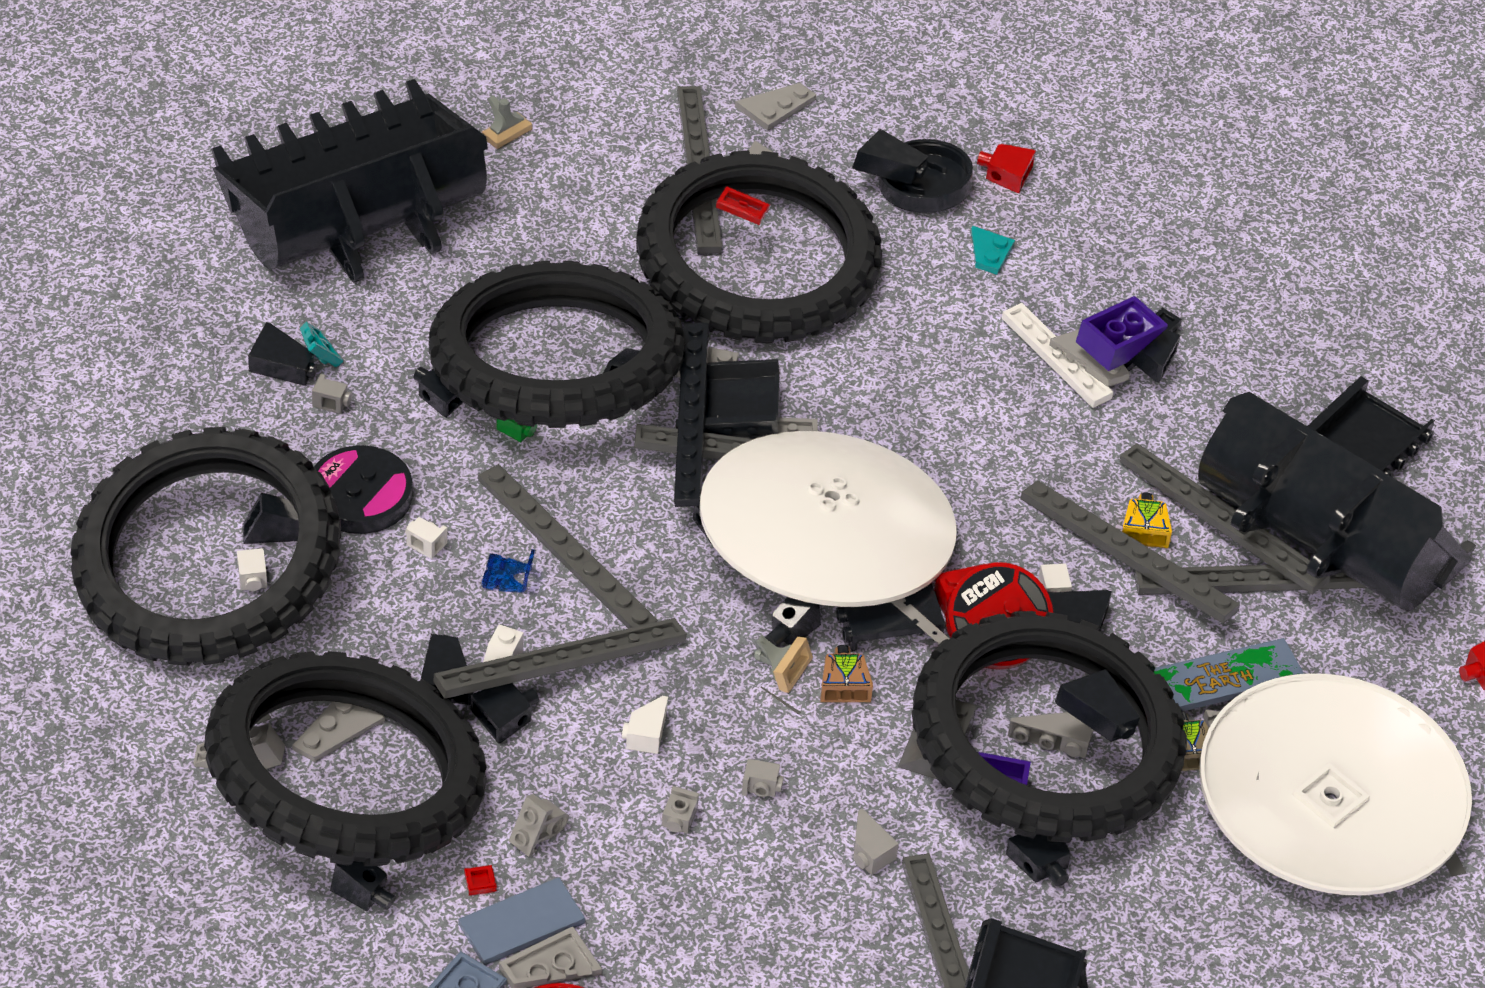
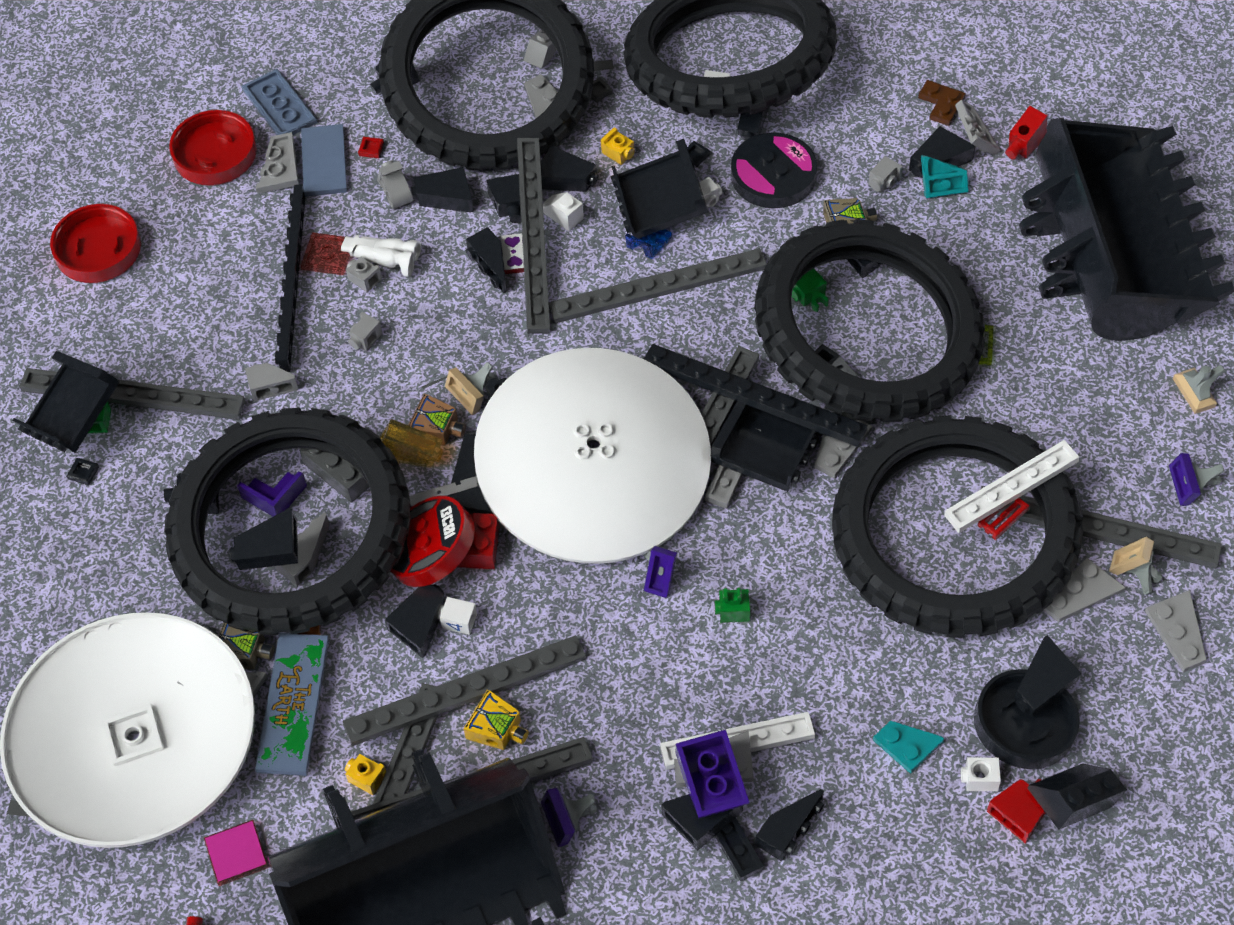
camera: 120 degrees right, 10 degrees up
(191, 370) = (945, 101): none -> reddish brown plate
(229, 288) = (1027, 133): none -> red torso
(229, 335) = (976, 129): none -> light grey wing
(359, 567) = (698, 153): none -> black tile
(387, 629) = (617, 146): none -> yellow brick
(409, 411) = (847, 210): none -> torso
(444, 565) = (659, 193): none -> black panel
(520, 770) = (443, 190): none -> black slope
(581, 687) = (512, 253): none -> tile
(599, 700) = (486, 251): none -> black slope
(616, 116) = (1191, 479): none -> dark purple piece
(641, 798) = (384, 251): none -> white piece
(646, 726) = (449, 277): white slope -> none
(662, 864) = (325, 254): none -> clear red tile
(716, 877) = (290, 283): none -> black plate
(721, 191) = (1011, 486): none -> white plate
(730, 130) = (1137, 559): none -> tan piece
(890, 689) = (411, 444): none -> clear yellow slope
(920, 442) = (659, 571): none -> dark purple piece
(925, 386) = (733, 605): none -> green brick
(982, 126) = (1077, 793): none -> black slope
(993, 194) = (988, 767): none -> white brick
(1103, 295) = (784, 826): none -> black slope
(1193, 444) = (565, 813): none -> dark purple piece
(1253, 598) = (368, 780): none -> yellow brick
(1384, 669) = (236, 852): none -> dark pink tile

